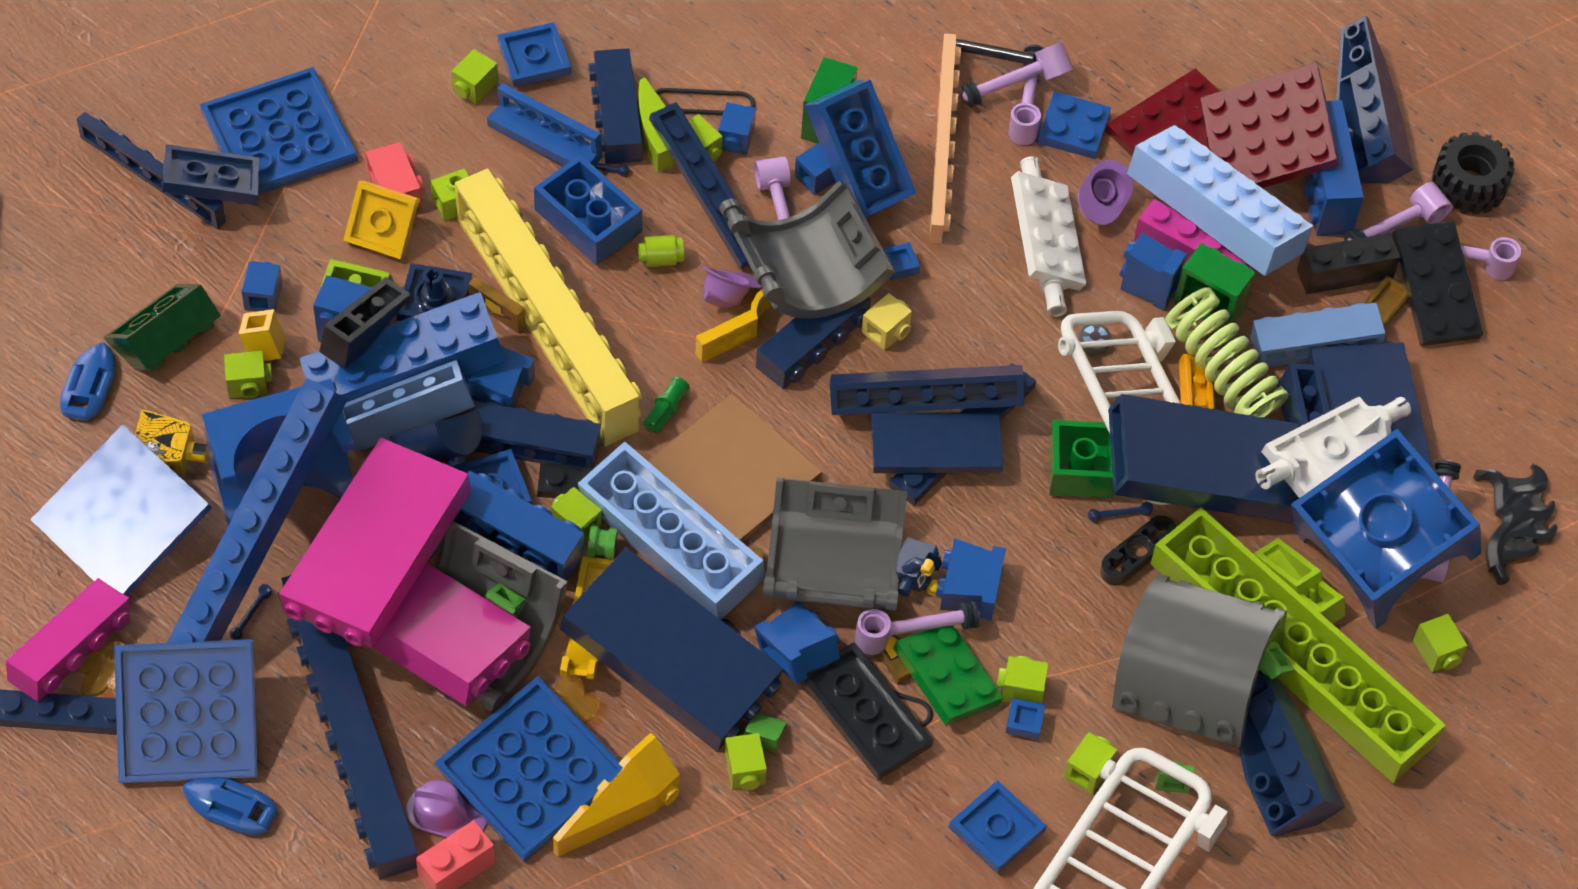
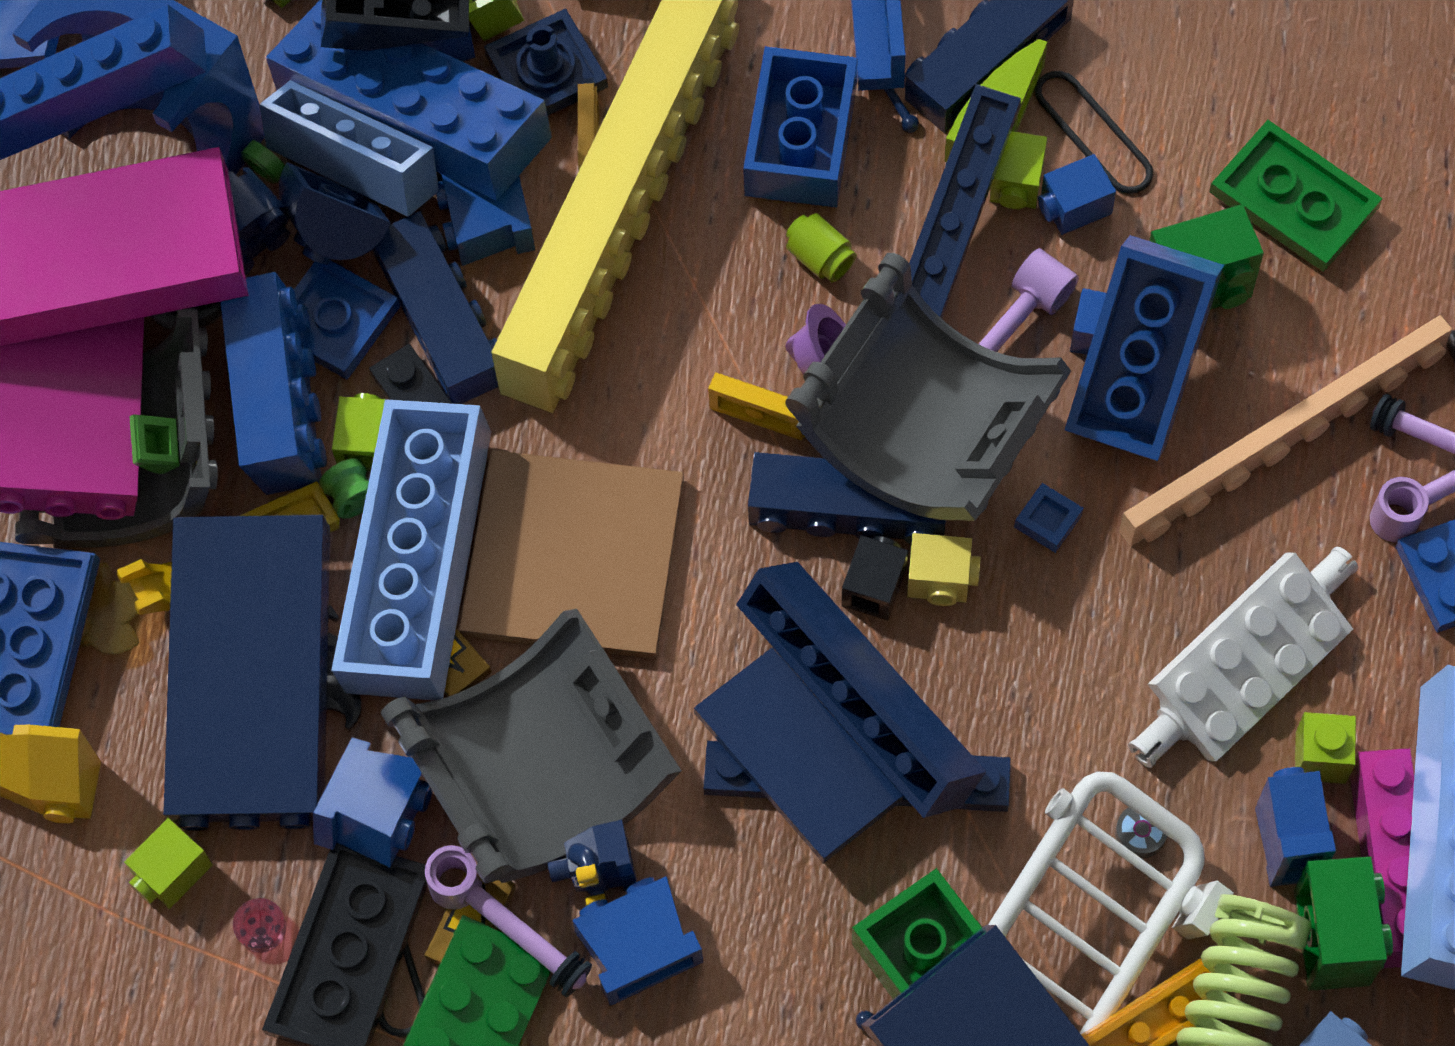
camera: 60 degrees right, 10 degrees up
(358, 456) = (263, 161): none -> bright green tile
(666, 404) = (604, 414): green axle -> none
(769, 729) = (235, 855): bright green slope -> none
(804, 45) = (1296, 195): none -> green plate
(813, 745) = (259, 925): none -> clear pink tile
(867, 350) = (875, 576): none -> black brick
(1105, 192) = (1370, 680): medium lavender piece -> none
(1117, 233) = (1326, 745): none -> lime brick

